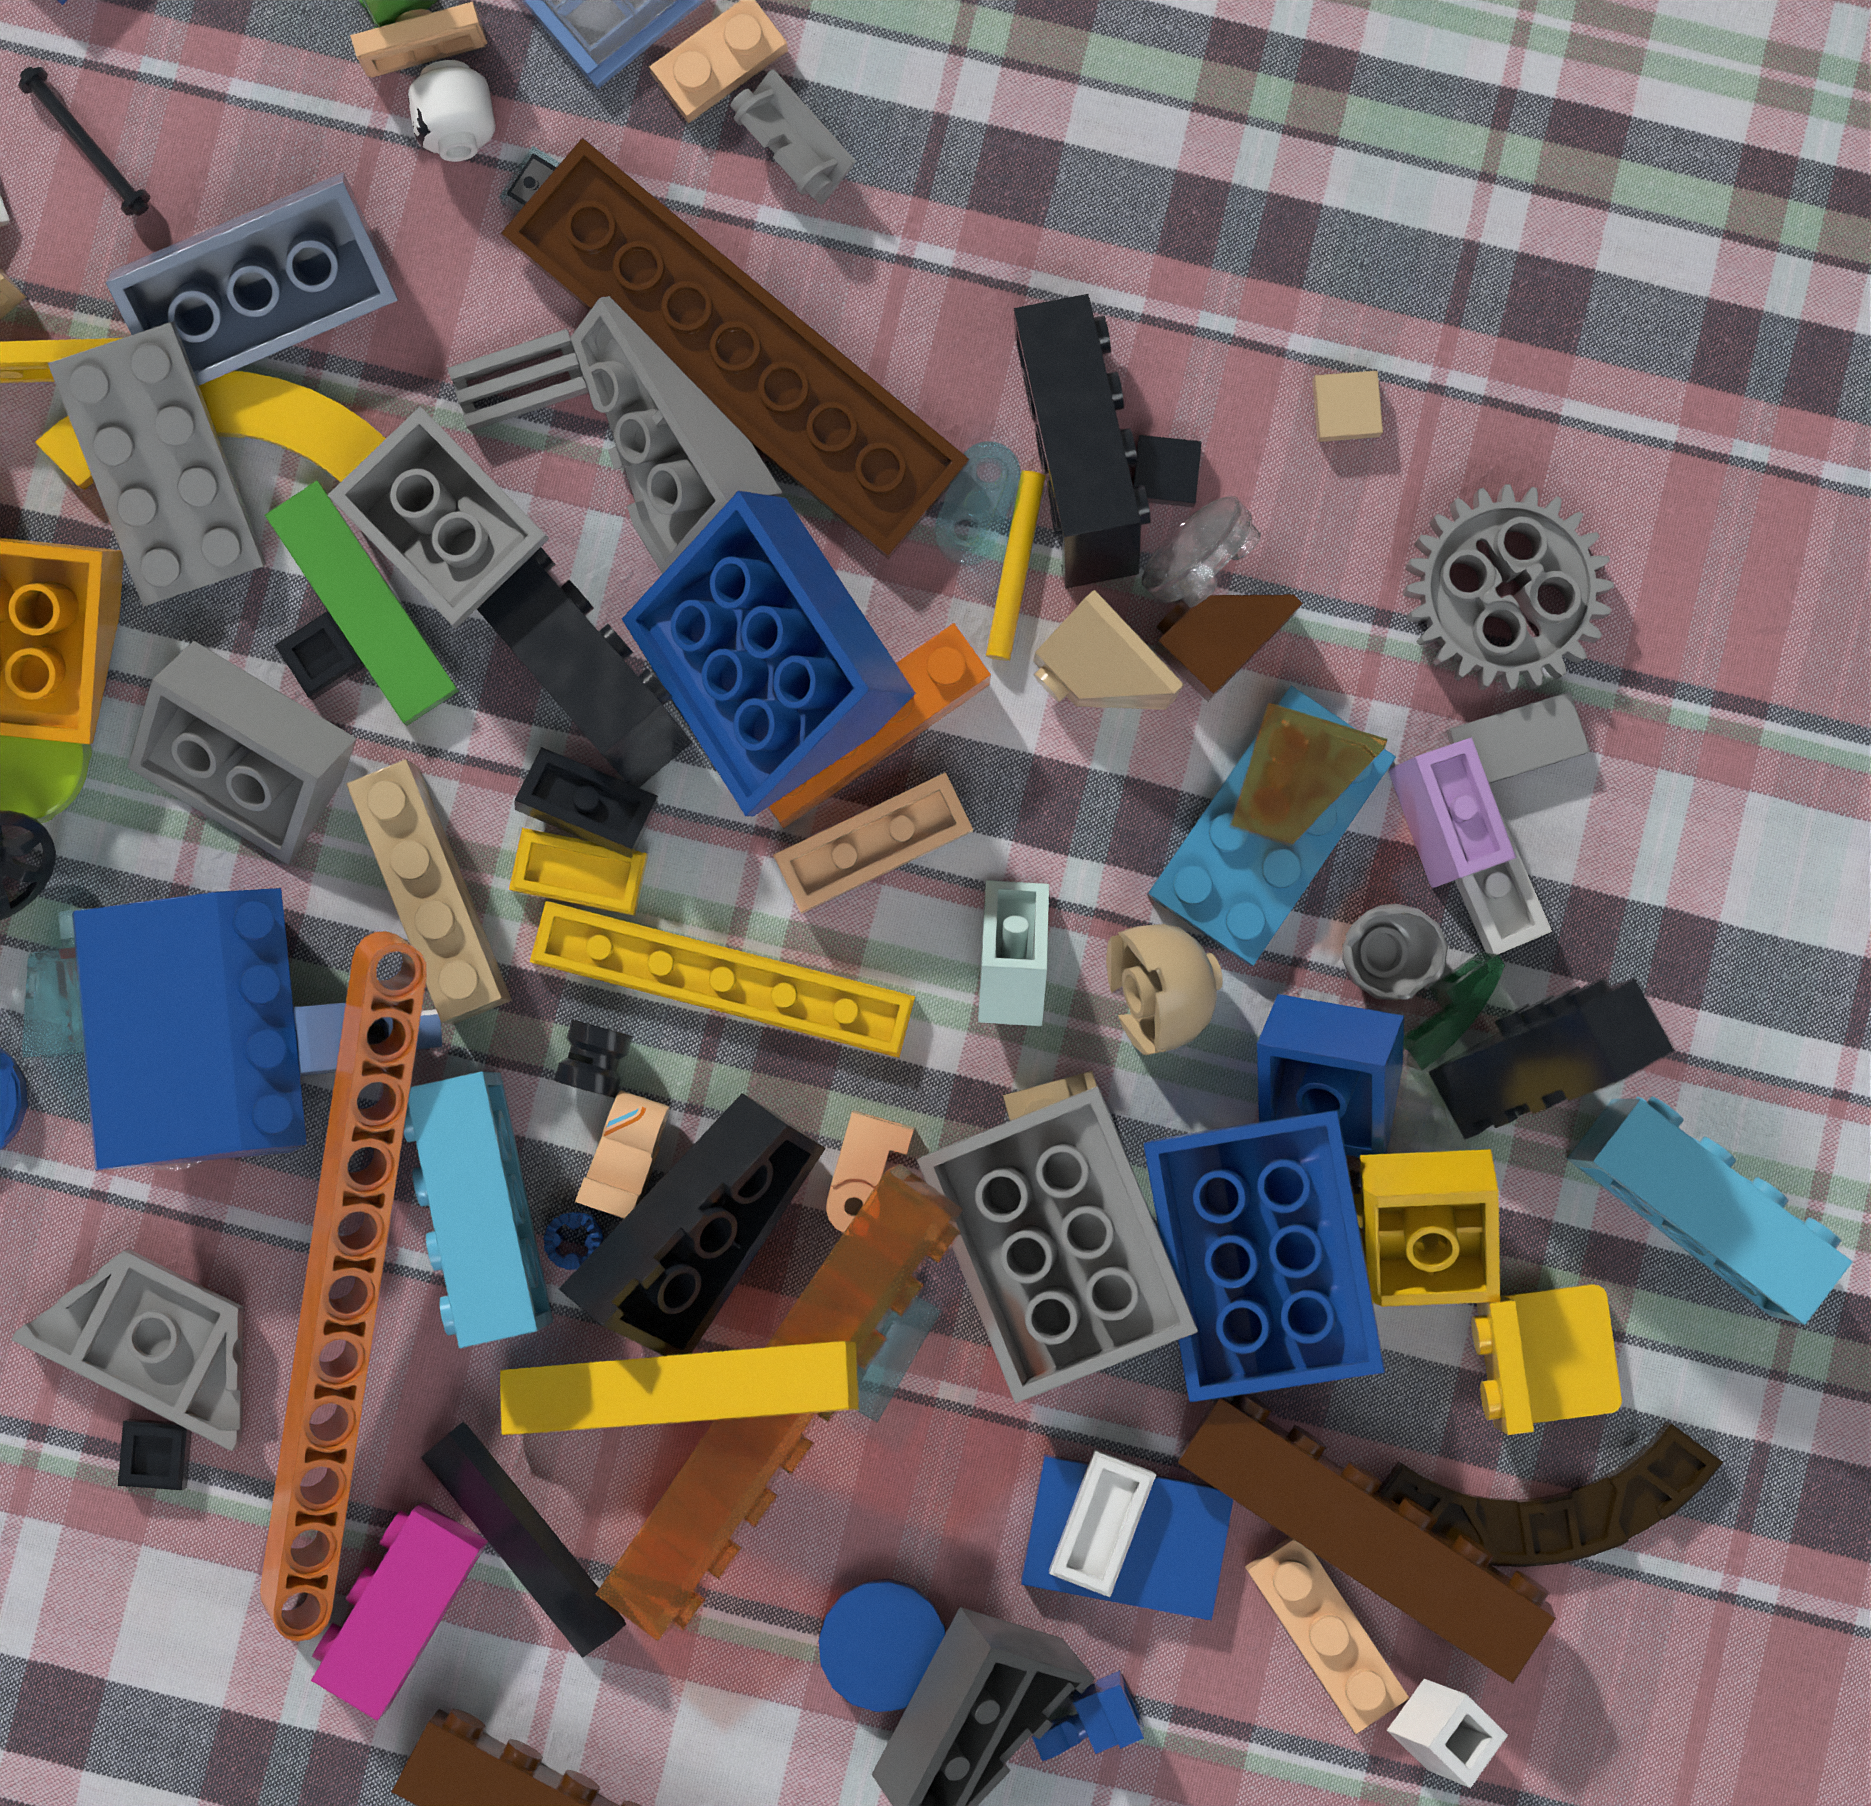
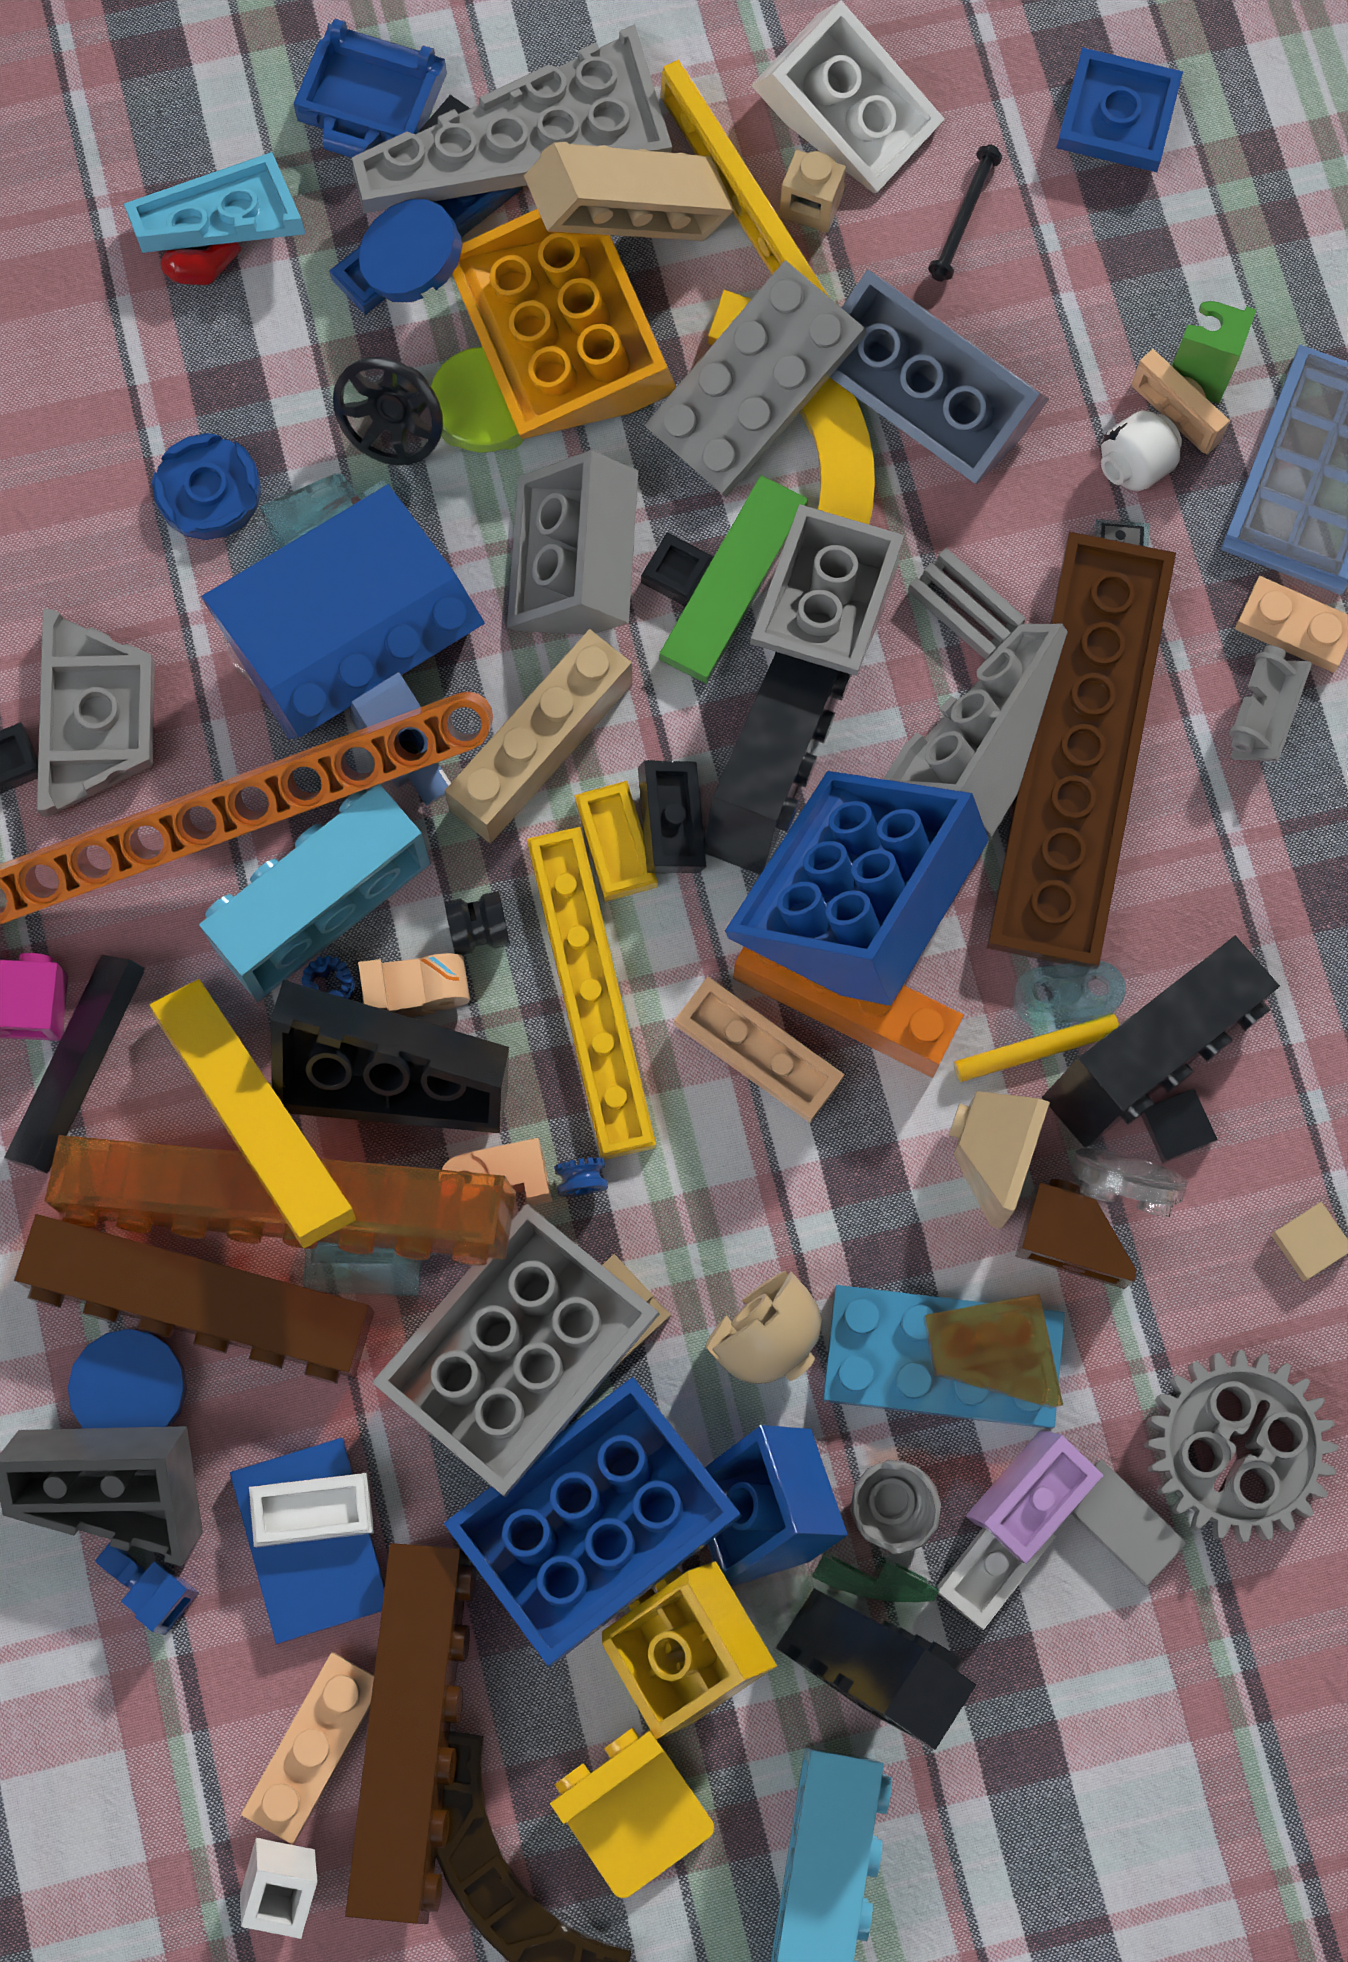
camera: 60 degrees right, 10 degrees down
(828, 1536) = (194, 1297): none -> reddish brown brick
(909, 1088) = (581, 1178): none -> blue bush
(1014, 953) = (730, 1202): light aqua slope -> none

